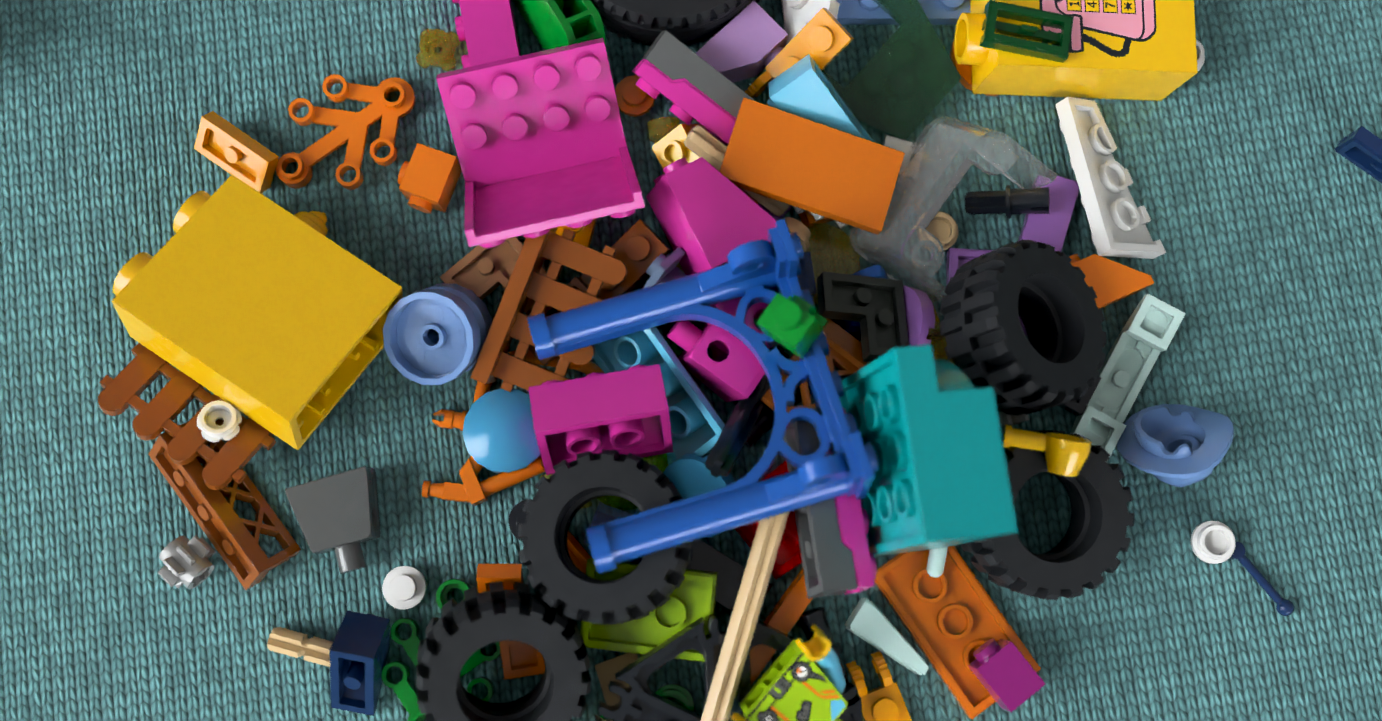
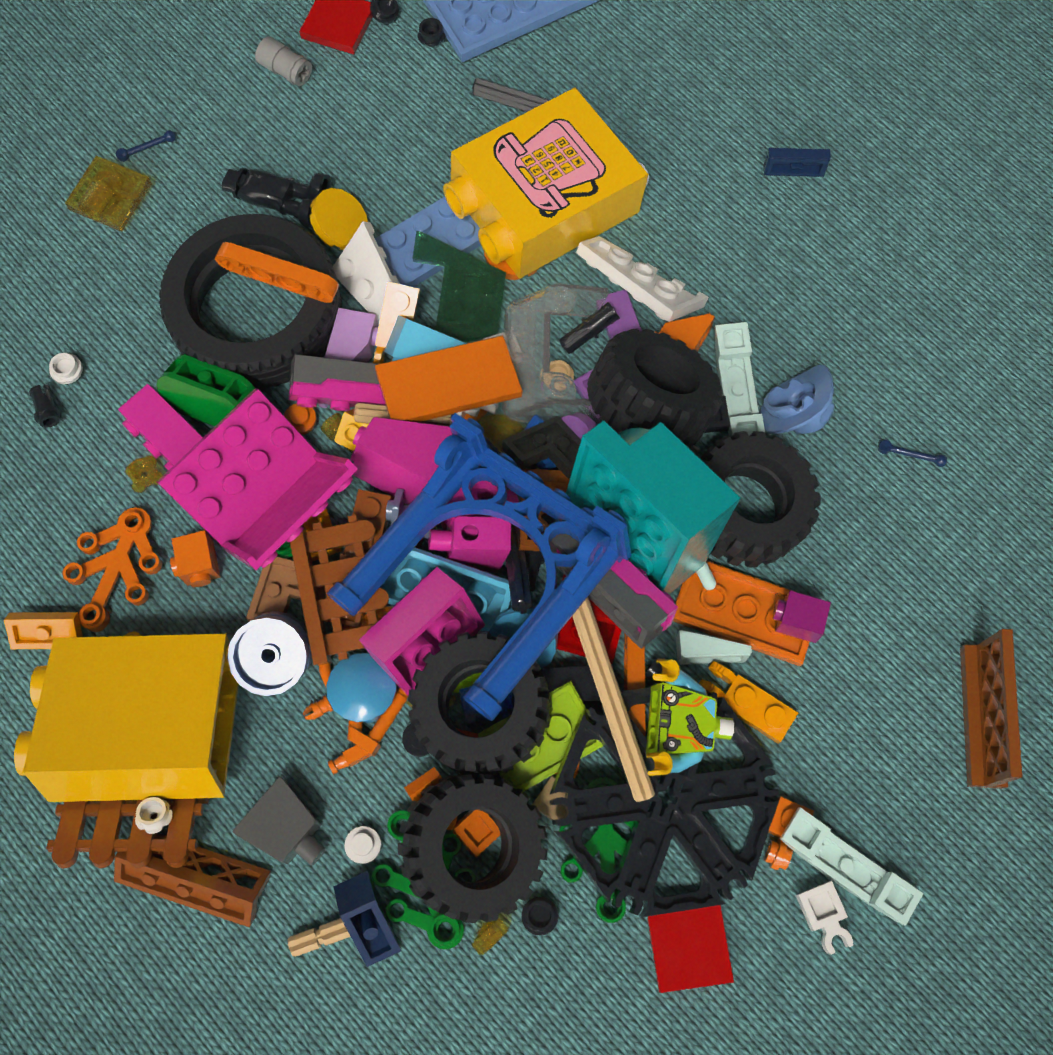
camera: 30 degrees left, 10 degrees down
(186, 562) = (193, 935): light grey gear -> none
(792, 323) = (506, 474): green brick -> none
(1022, 46) = (529, 216): dark green tile -> none
(1063, 452) = (733, 446): yellow bar -> none
(1213, 542) = (867, 450): white plate -> none

